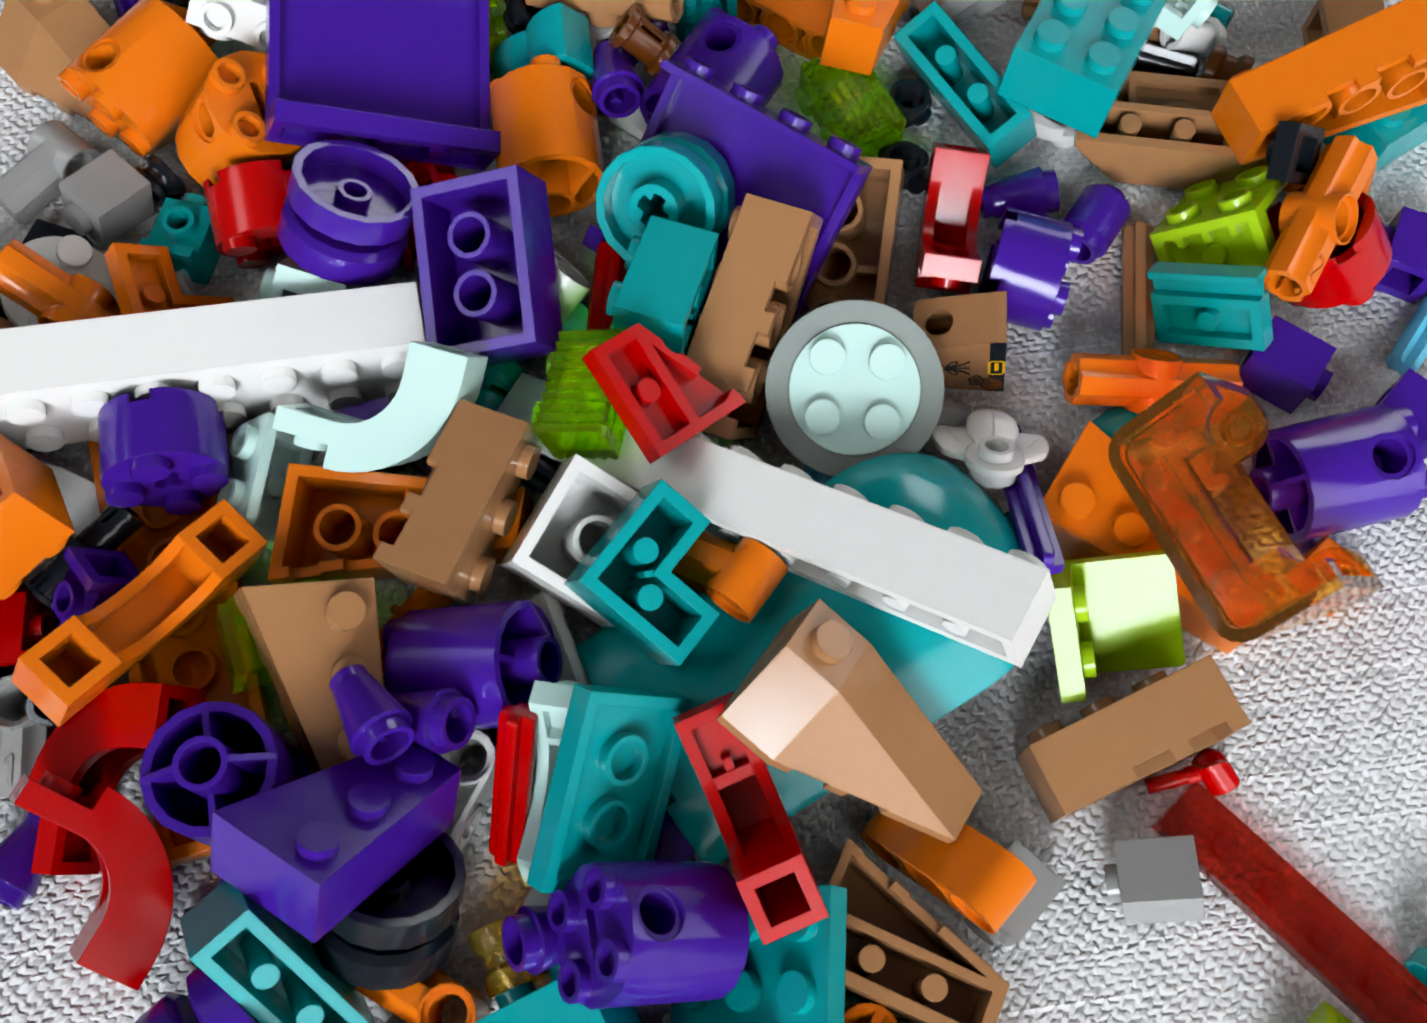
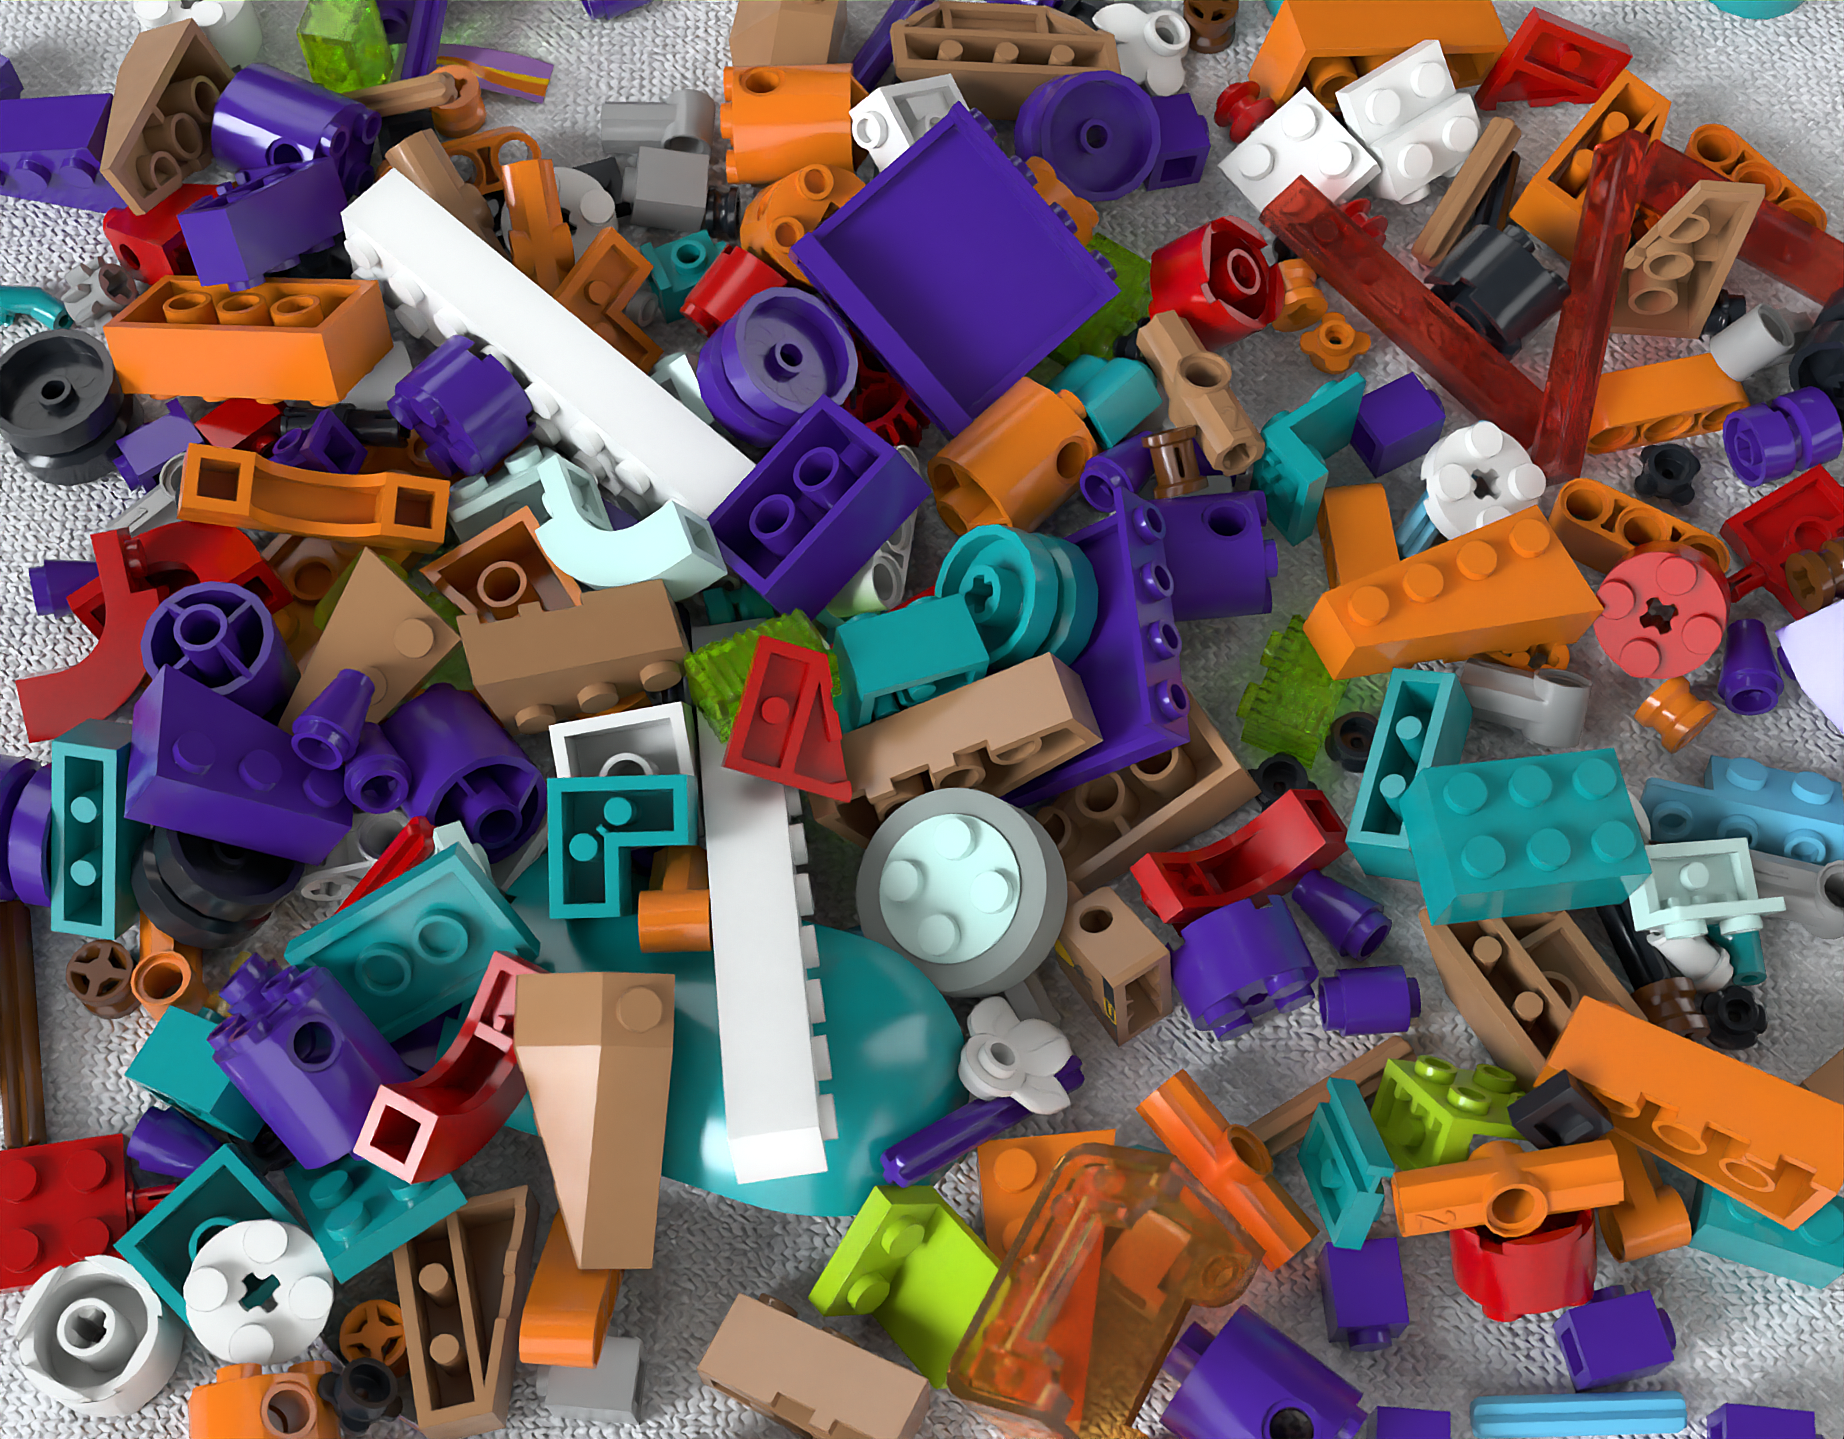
camera: 55 degrees right, 5 degrees down
(1248, 42) = (1730, 1034): none -> black plate

